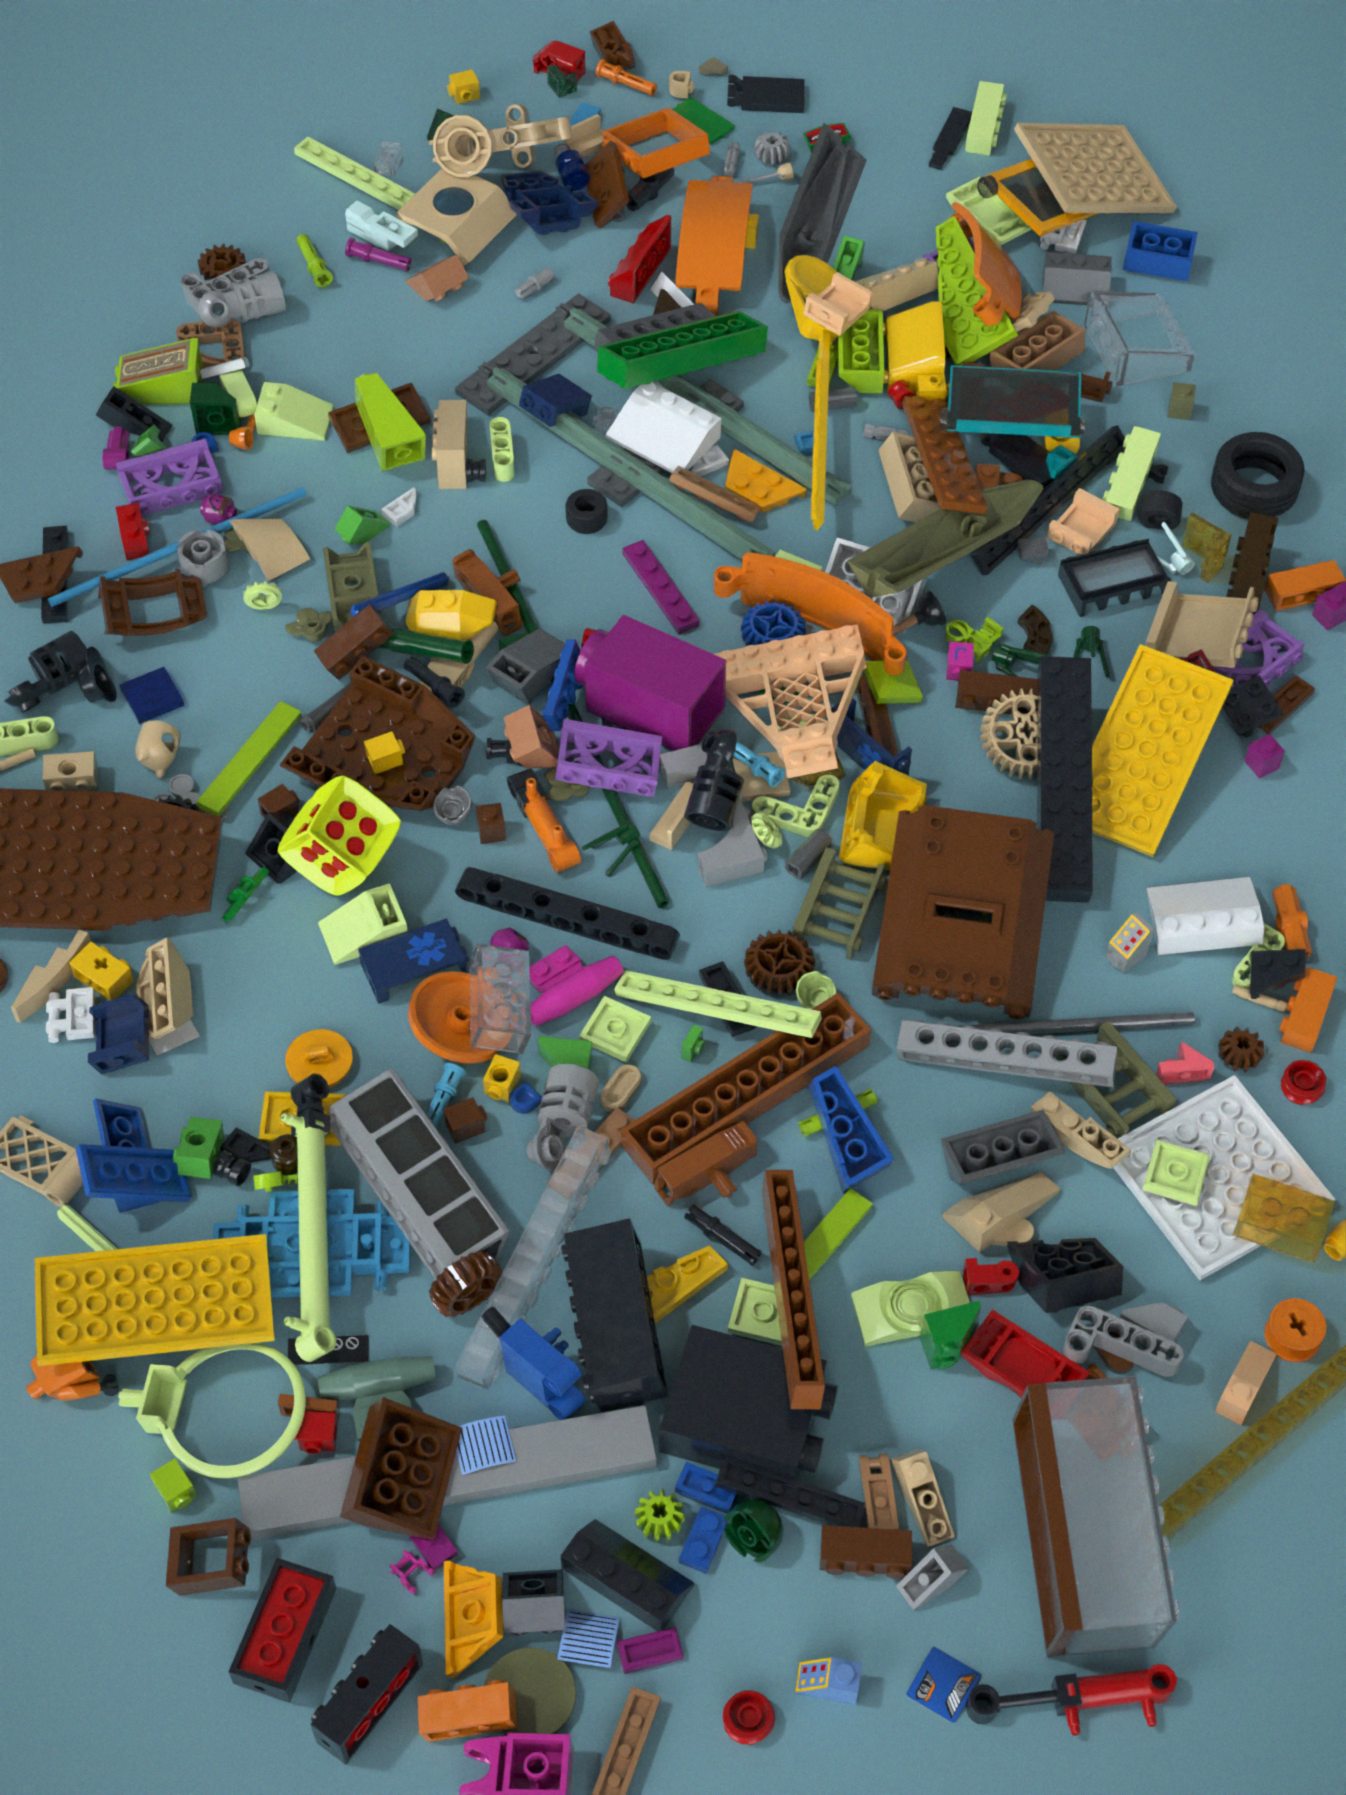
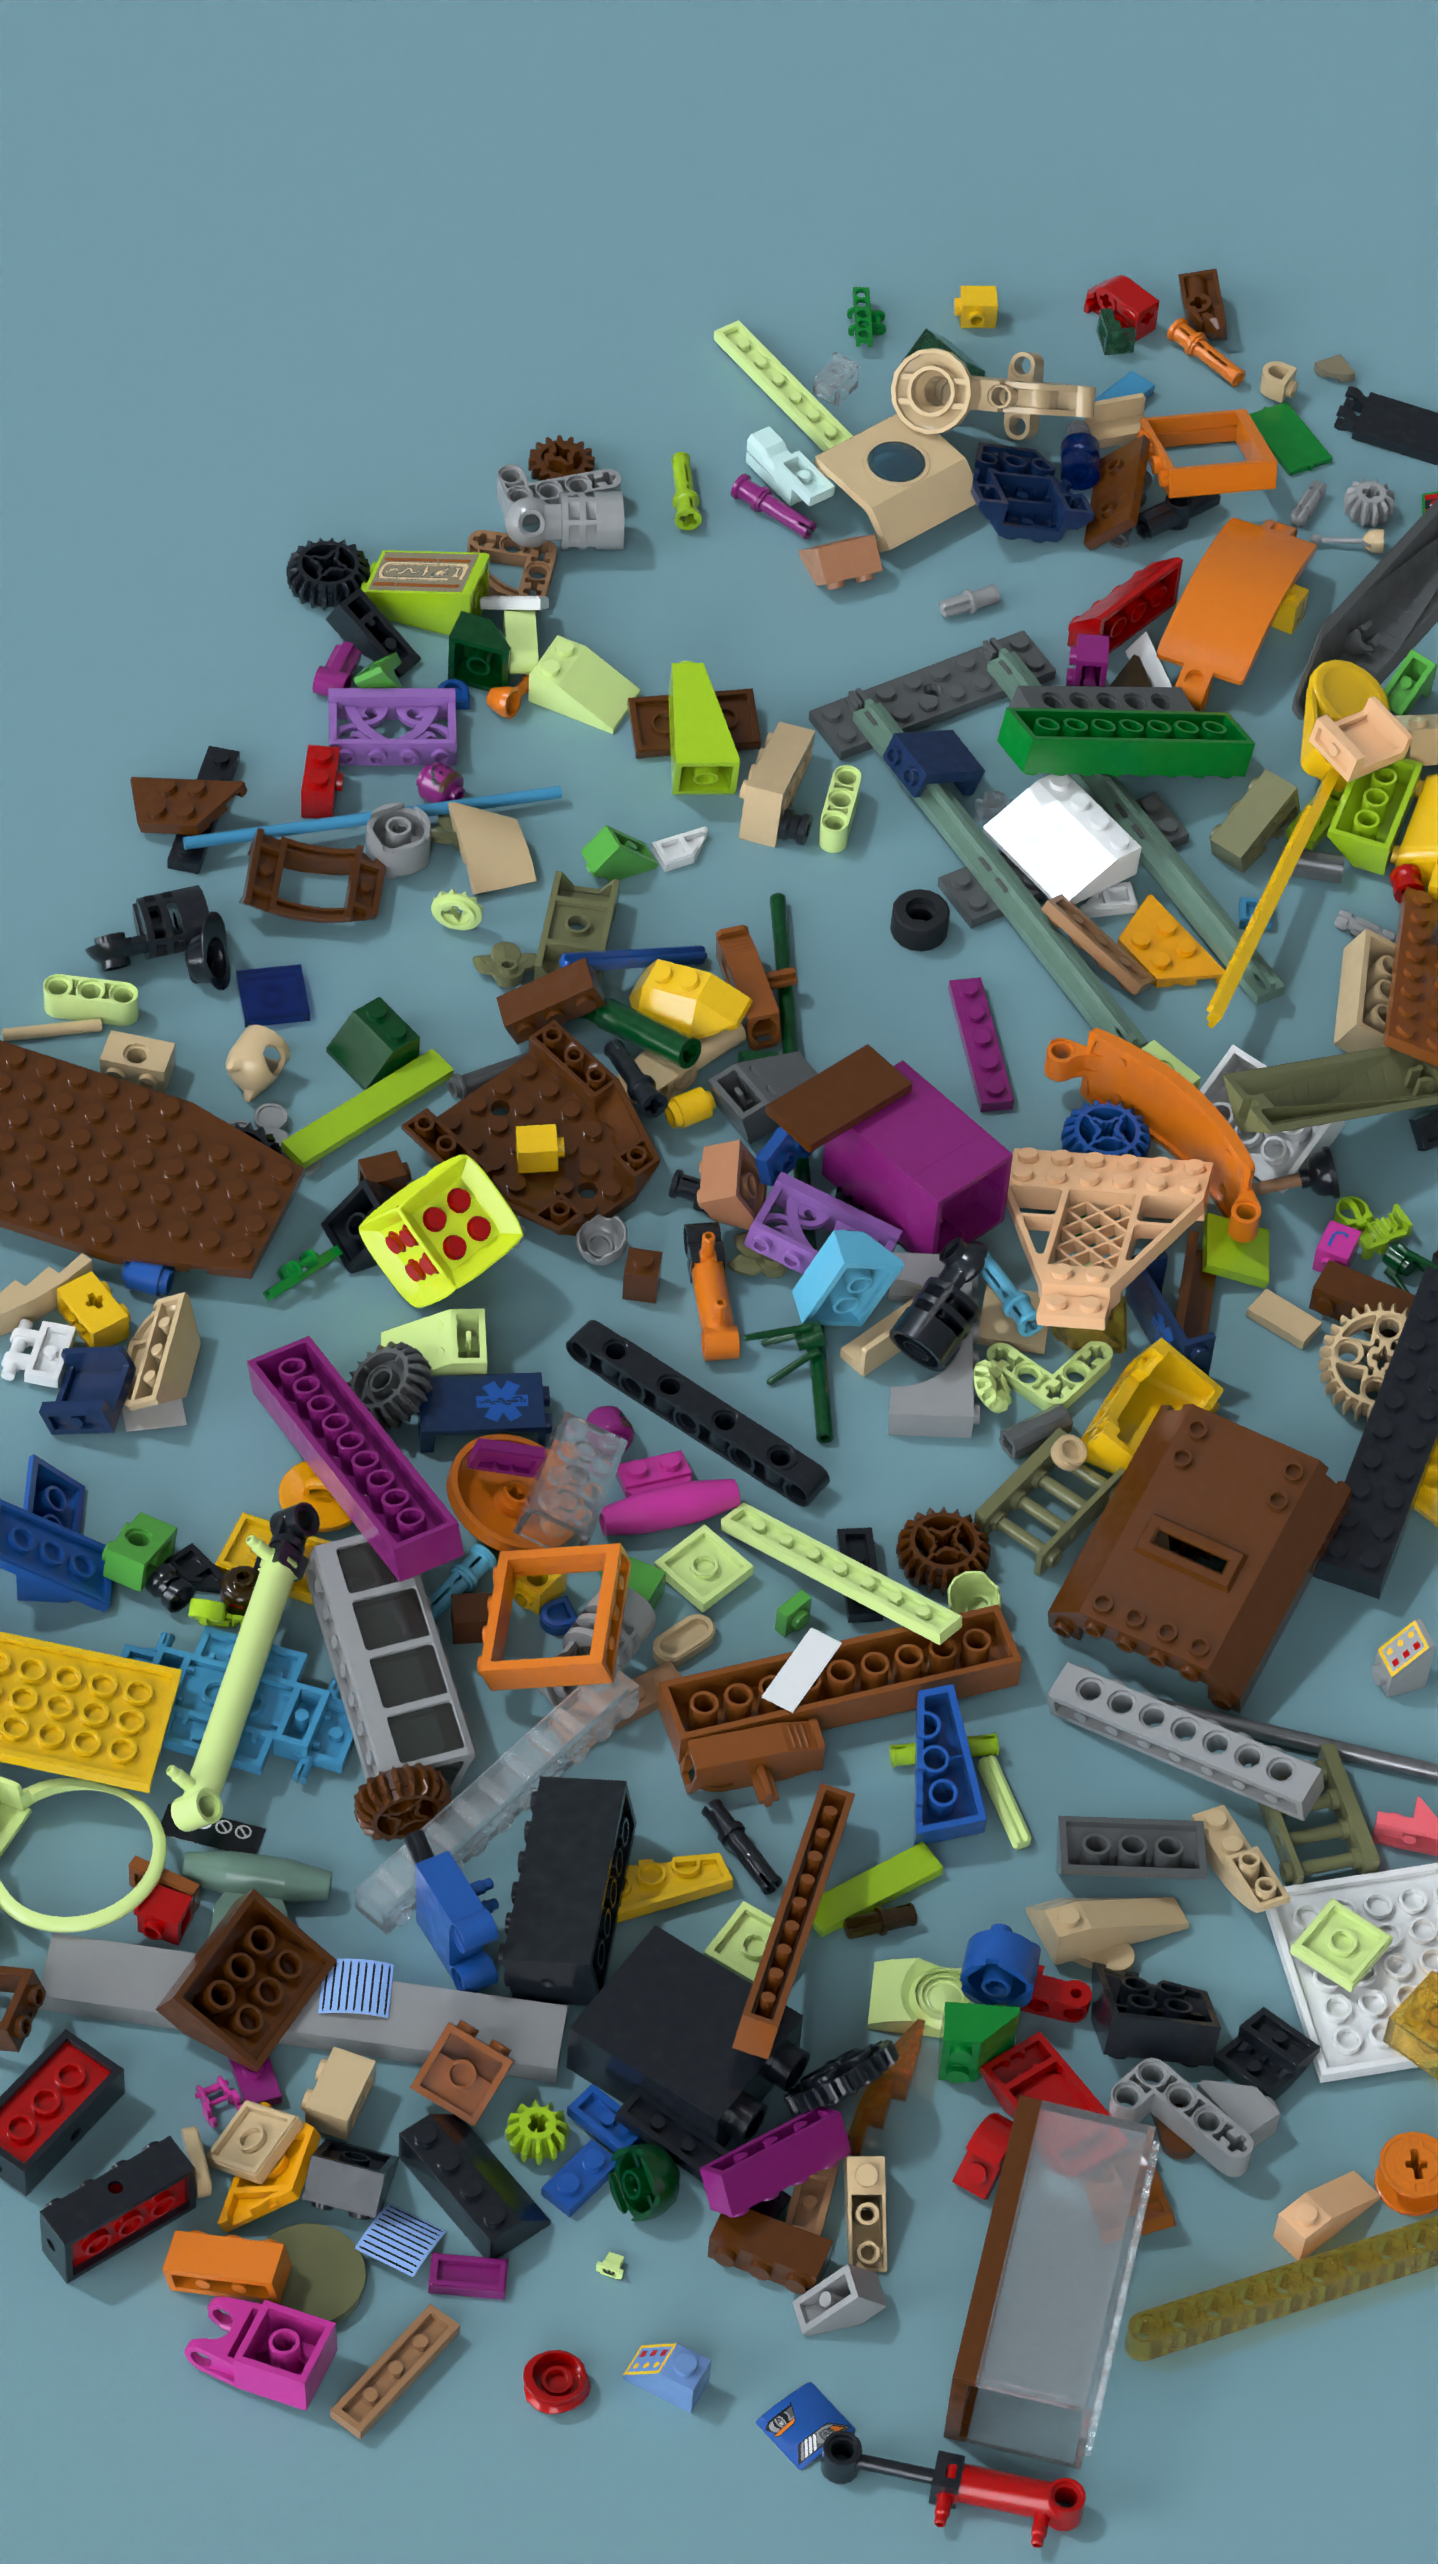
camera: 15 degrees right, 5 degrees down
(85, 382) = (326, 572): none -> black gear
(133, 933) = (148, 1277): none -> blue brick
(237, 709) = (373, 1043): none -> dark green slope
(339, 1029) = (355, 1459): none -> magenta brick
(340, 963) = (392, 1383): none -> dark grey gear
(397, 113) = (872, 318): none -> green piece
(412, 1628) = (194, 2152): none -> tan tile
(447, 992) = (506, 1457): none -> magenta plate
(451, 1598) = (254, 2141): none -> tan tile
(478, 690) = (690, 1108): none -> yellow brick
(501, 1535) = (339, 2092): none -> tan brick
(573, 1137) = (556, 1671): none -> orange window
(589, 1487) = (463, 2072): none -> dark orange plate
(590, 655) = (838, 1098): none -> reddish brown tile
(634, 301) = (1089, 661): none -> magenta brick
(639, 785) = (846, 1280): none -> medium azure slope
(719, 1087) = (801, 1670): none -> white sticker
(753, 1603) = (611, 2266): none -> yellowish green piece
(785, 379) = (1255, 820): none -> olive wedge
(840, 863) = (1068, 1452): none -> tan tile
(844, 1260) = (880, 1921): none -> dark brown axle
(849, 1483) = (775, 2161): none -> magenta brick
(870, 1398) = (841, 2077): none -> black gear
(895, 1139) = (1004, 1802): none -> yellowish green axle
(902, 1383) = (892, 2084): none -> clear orange slope
(943, 720) = (1284, 1319): none -> tan tile
(950, 1273) = (1000, 1967): none -> blue brick
(995, 1419) = (985, 2156): none -> red brick
(1156, 1272) = (1266, 2054): none -> black slope

